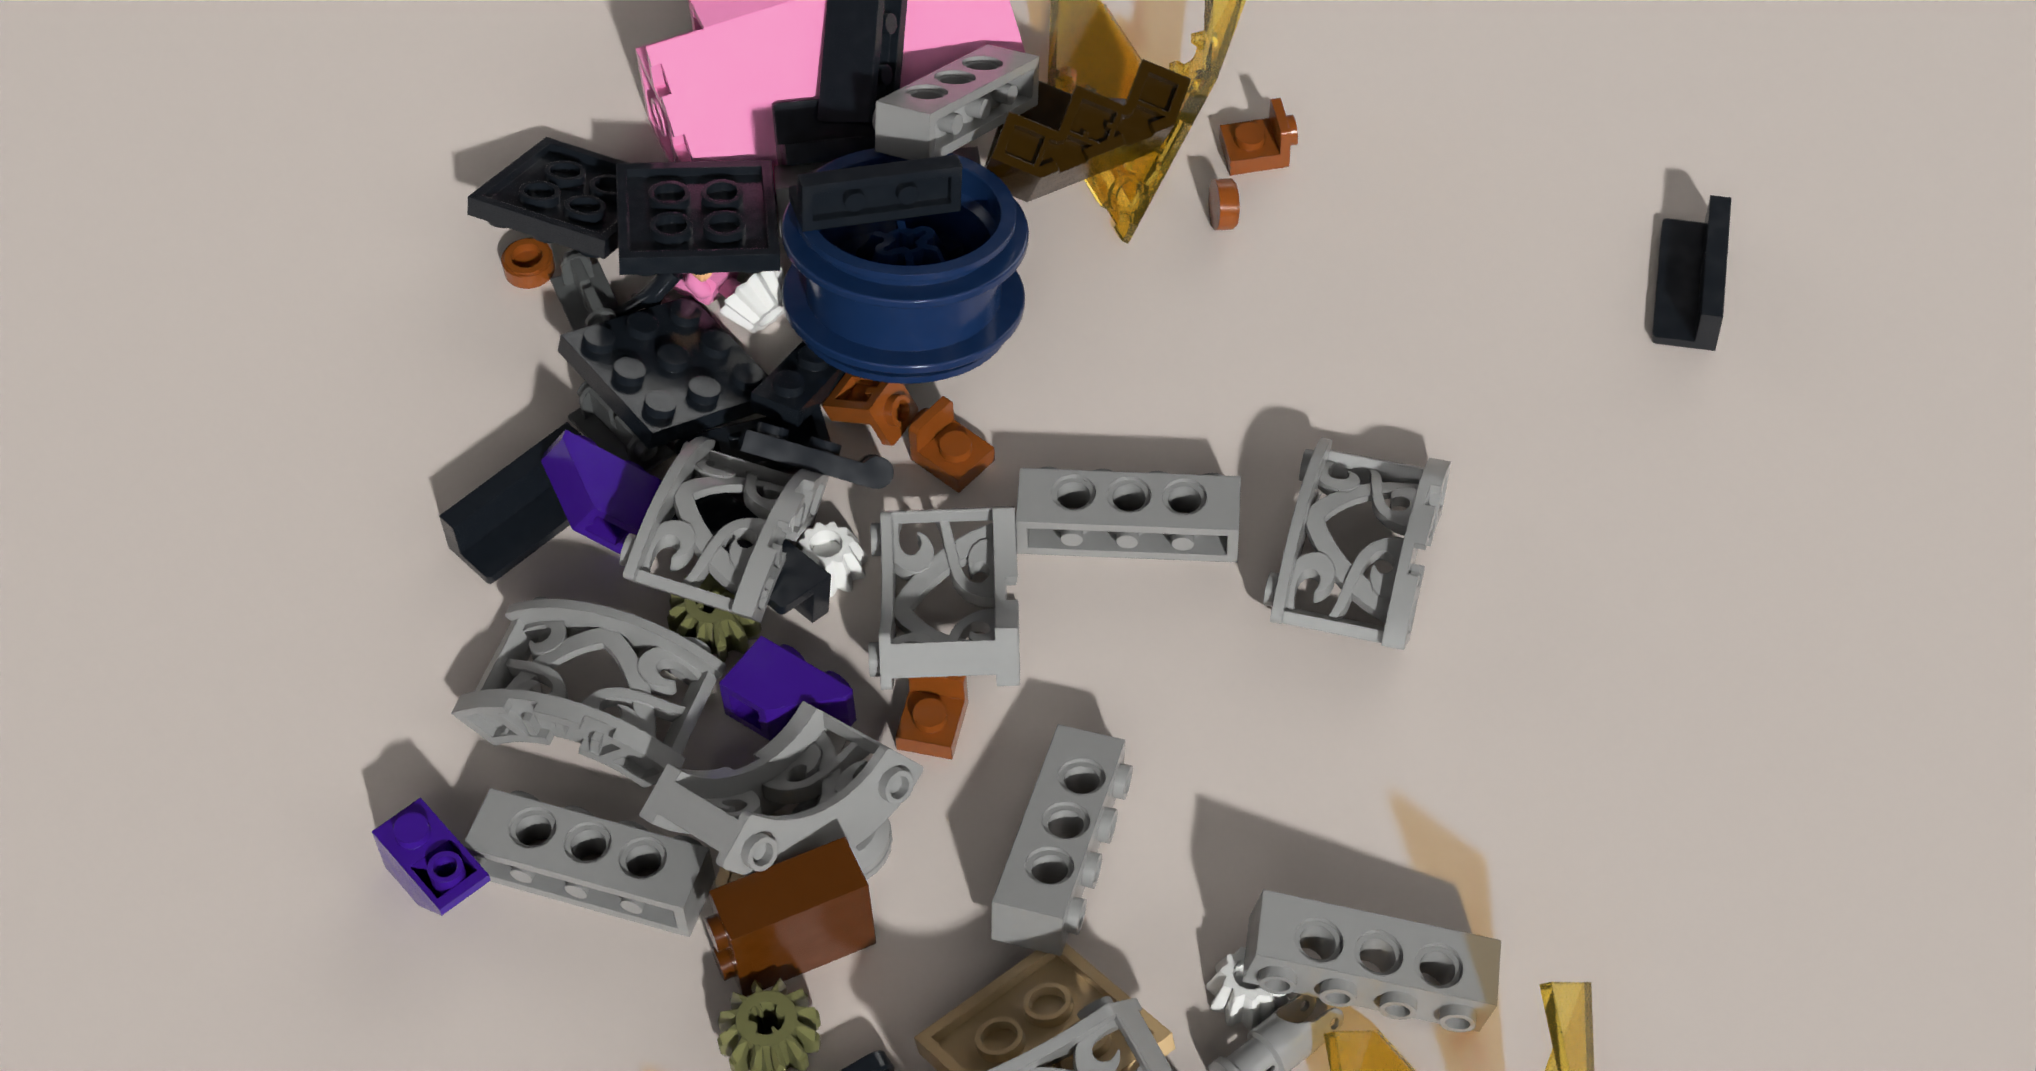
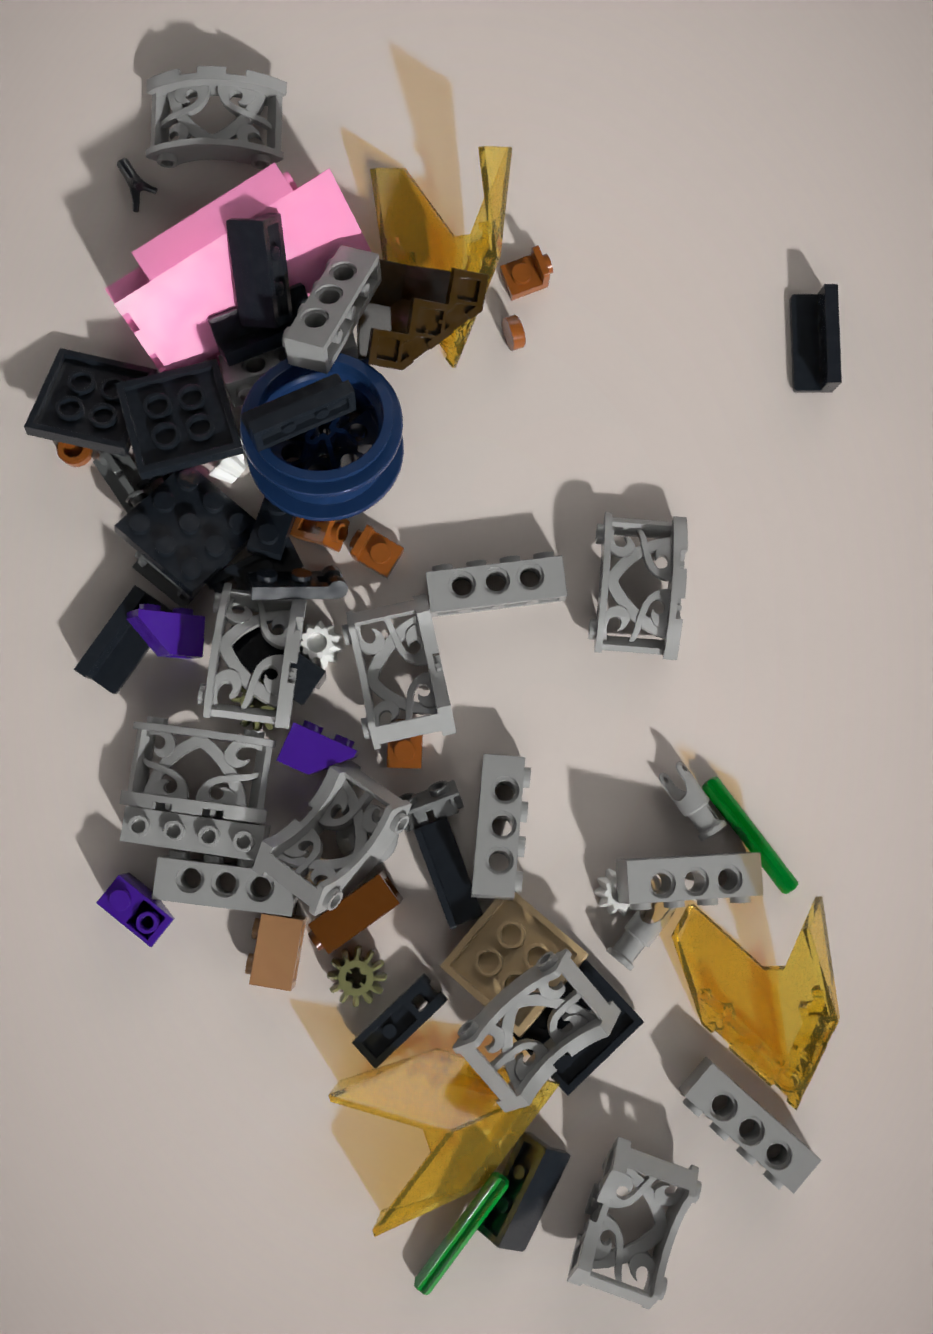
camera: 15 degrees left, 30 degrees up
(555, 767) = (193, 832): none -> light grey brick
(644, 970) = (276, 951): none -> medium nougat brick
(960, 906) = (448, 872): none -> black panel
(970, 796) = (440, 797): none -> dark grey hinge
(1402, 869) = (693, 803): none -> light grey piece
(1483, 919) = (749, 834): none -> green axle

